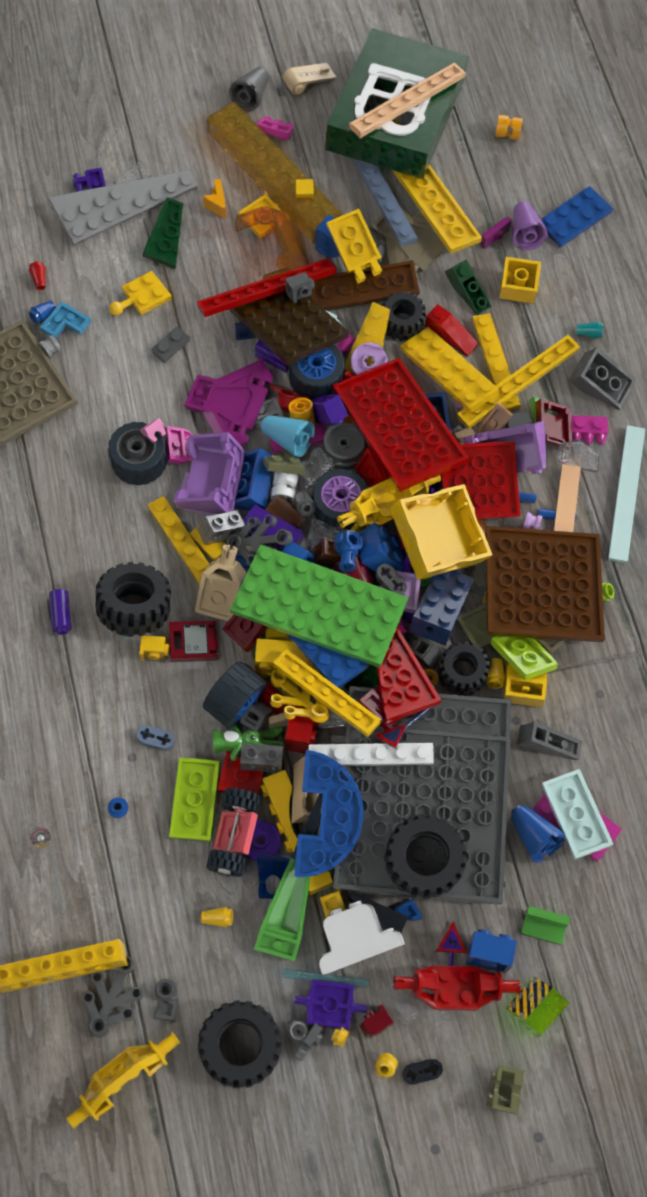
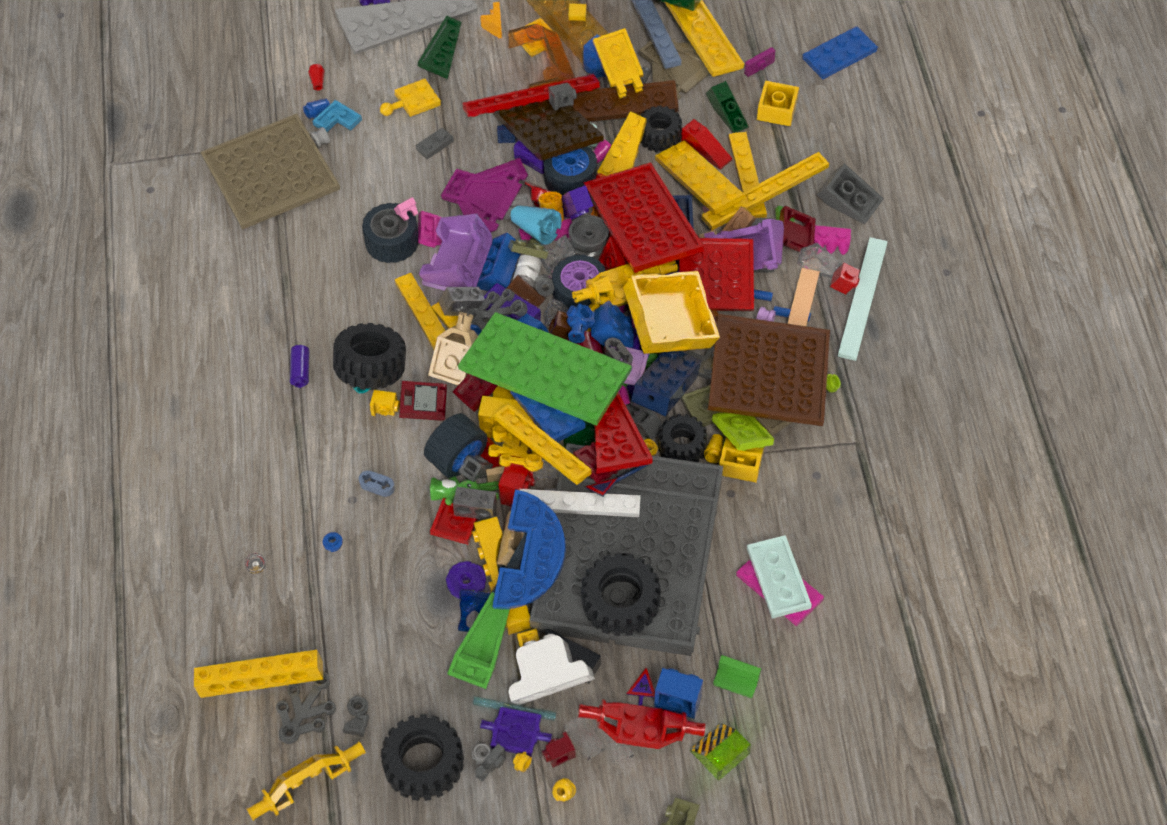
camera: 10 degrees right, 10 degrees down
(194, 799) = (407, 539): lime plate -> none
(218, 917) = (417, 645): yellow cone -> none
(234, 832) = (441, 569): plate -> none
(363, 352) = (616, 156): lavender plate -> none
(410, 910) = (607, 655): blue tile -> none
(423, 1077) = (600, 803): black beam -> none
(527, 227) = (790, 59): medium lavender cone -> none
(536, 833) = (738, 593): blue cone -> none
(548, 741) = (759, 511): dark grey slope -> none
(591, 330) = (844, 151): teal cone -> none
(608, 474) = (845, 278): none -> red brick

